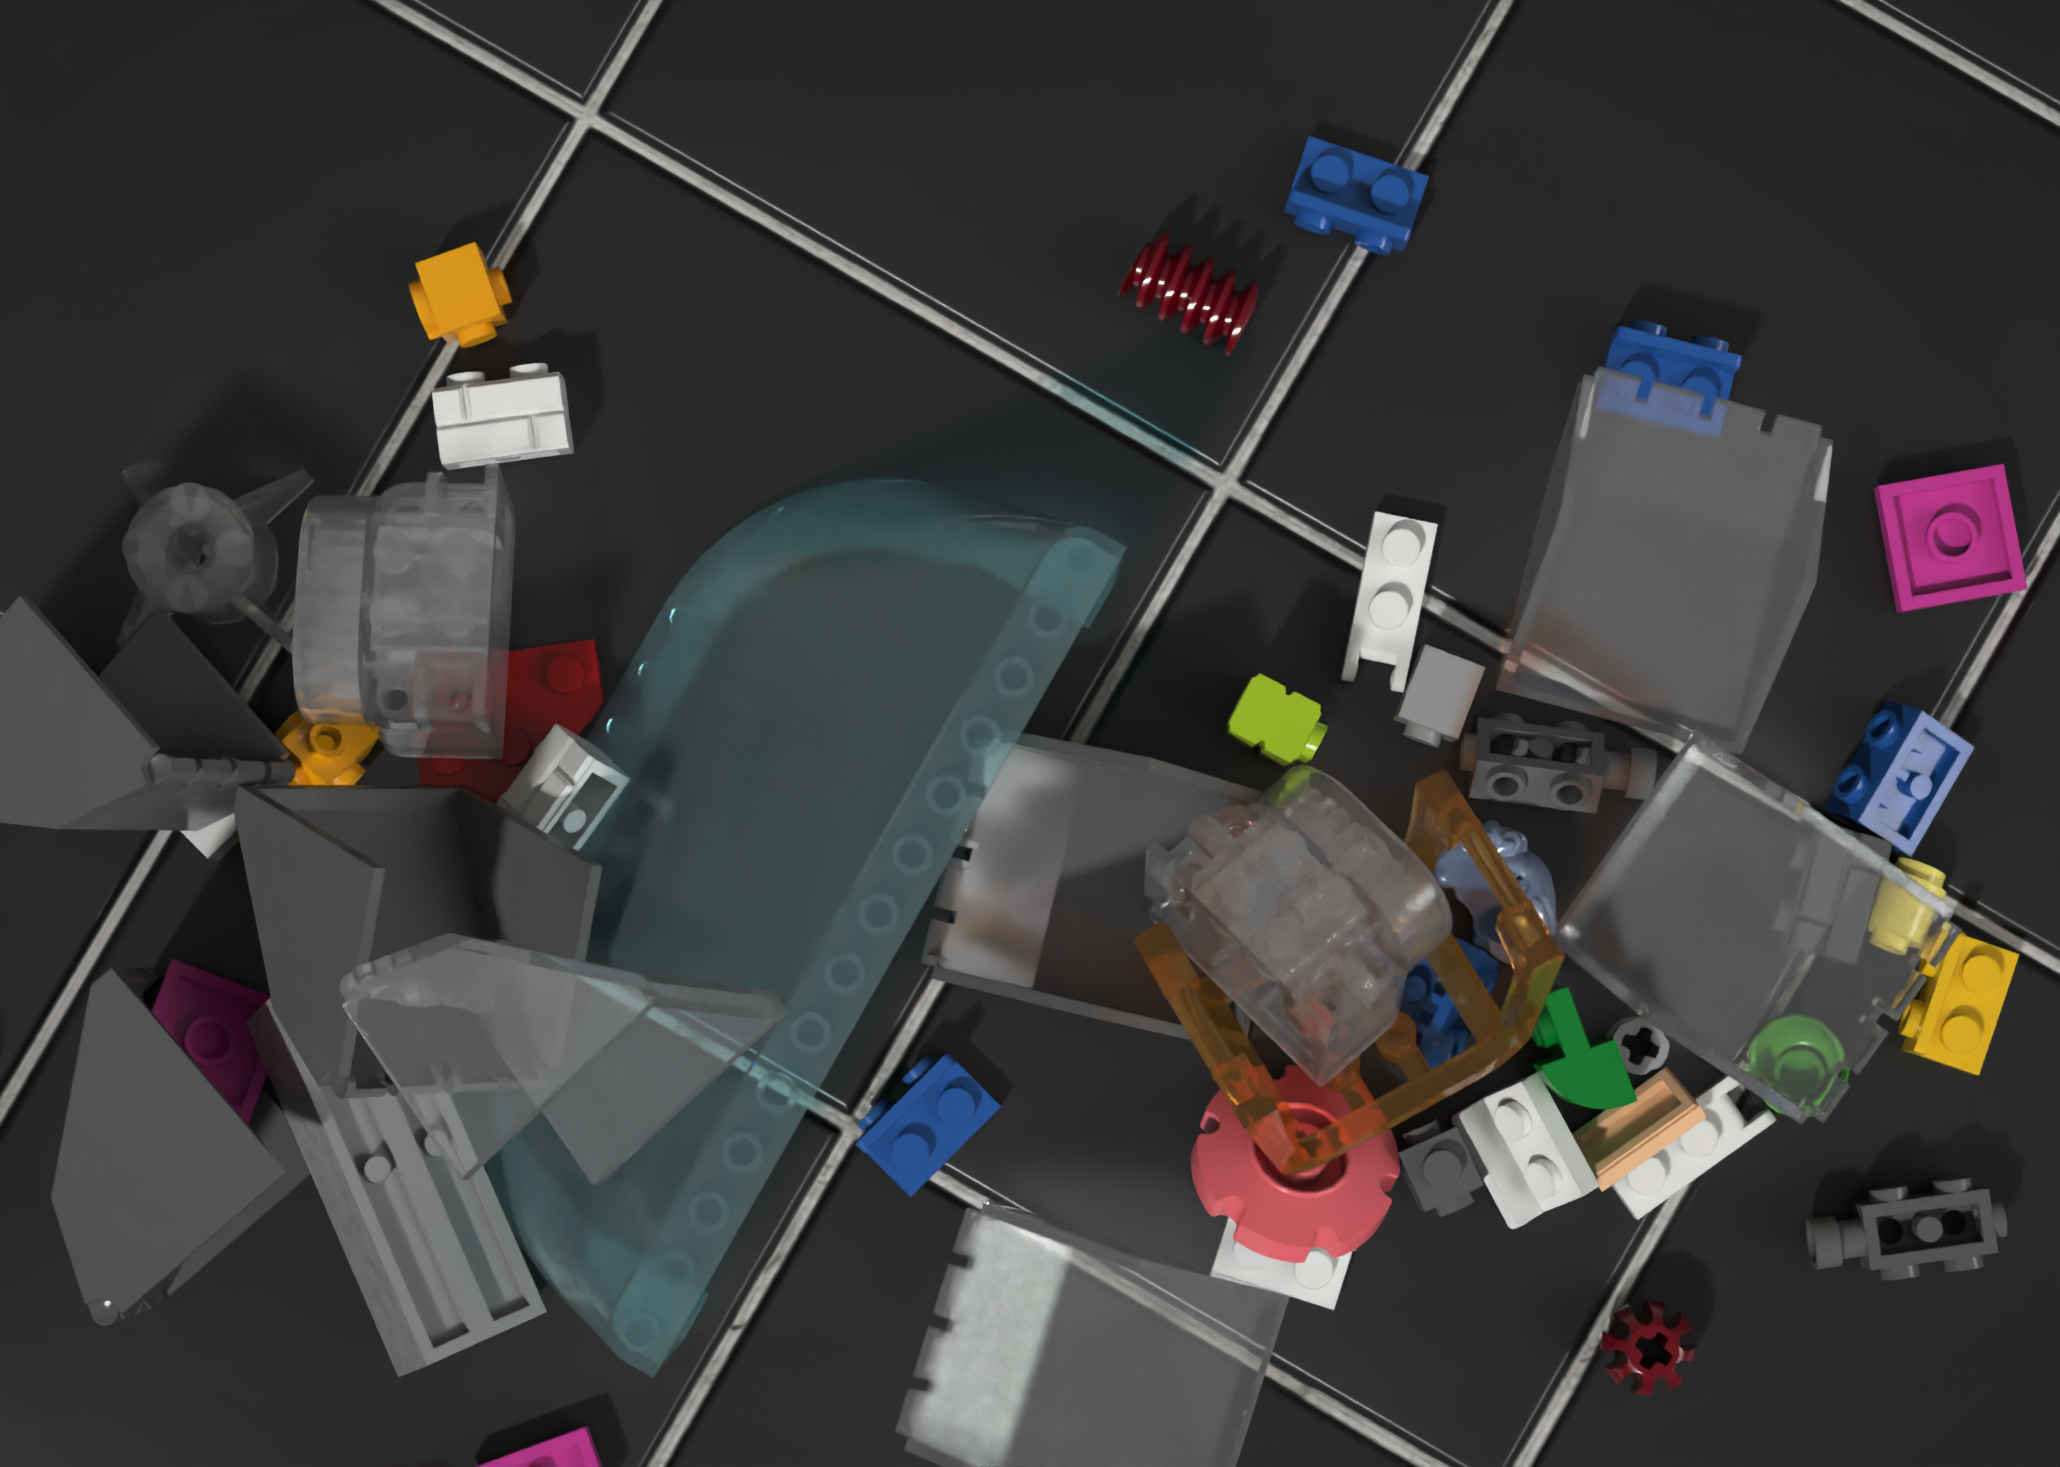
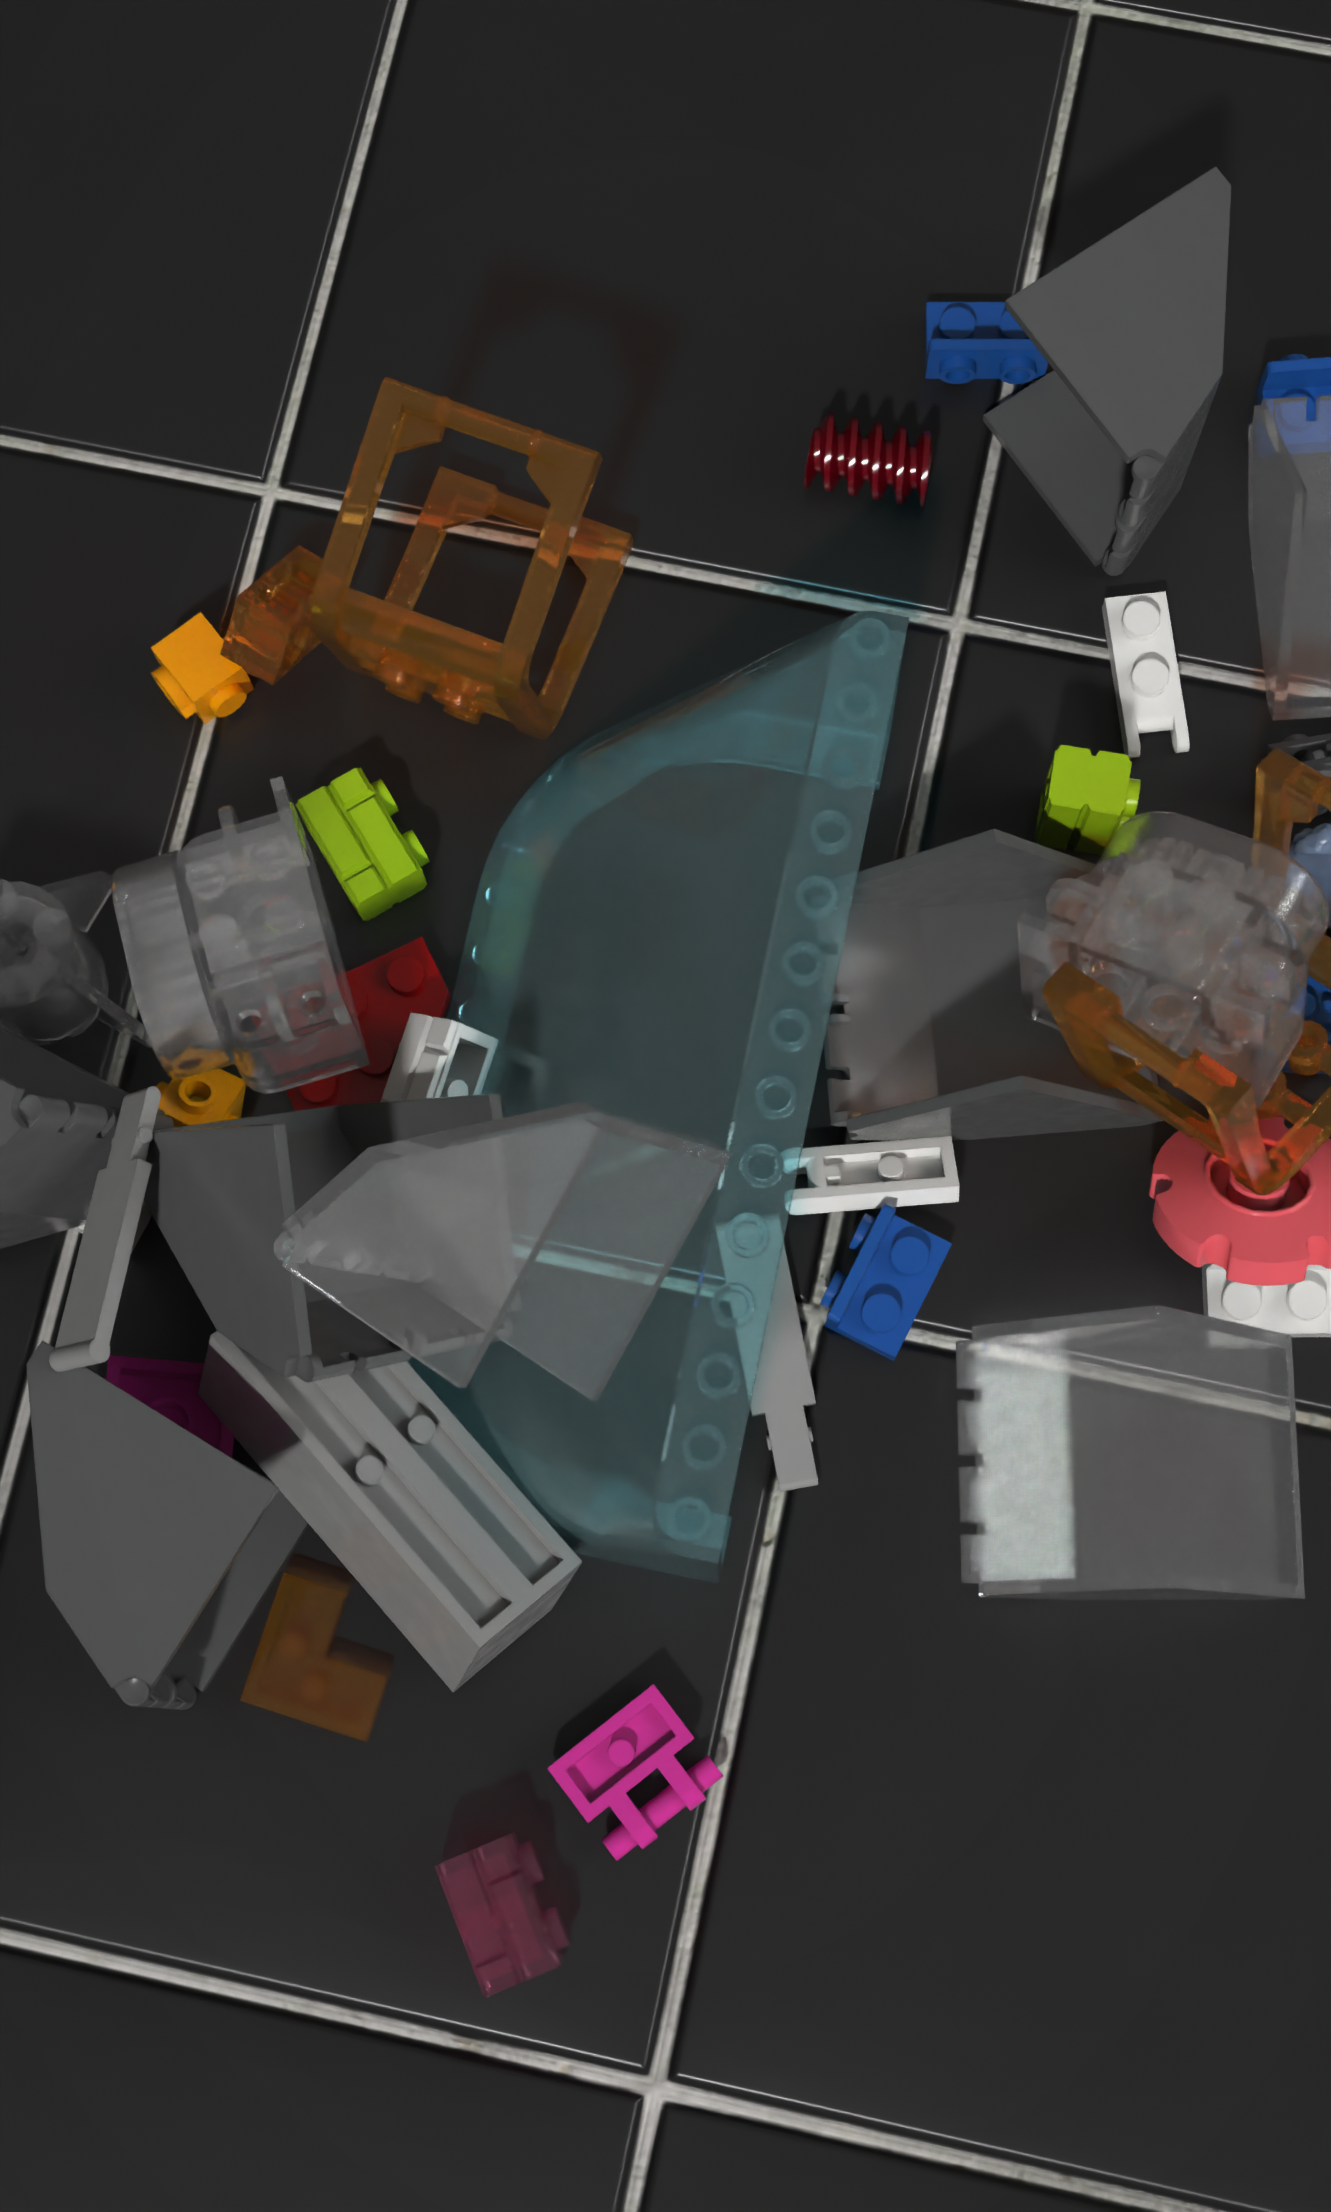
camera: 10 degrees left, 10 degrees down
(199, 892) = (107, 1238): none -> light grey piece
(261, 1308) = (294, 1669): none -> clear orange tile
(502, 417) = (288, 746): white brick -> none
(557, 275) = (273, 618): none -> clear orange brick
(565, 526) = (363, 844): none -> lime brick
(674, 382) = (437, 658): none -> clear orange windscreen
(800, 1185) = (785, 1388): none -> light grey piece
(950, 1019) = (876, 1174): none -> white hinge
(1438, 696) = (1224, 737): light grey brick -> none
(1454, 309) = (1134, 372): none -> dark grey windscreen

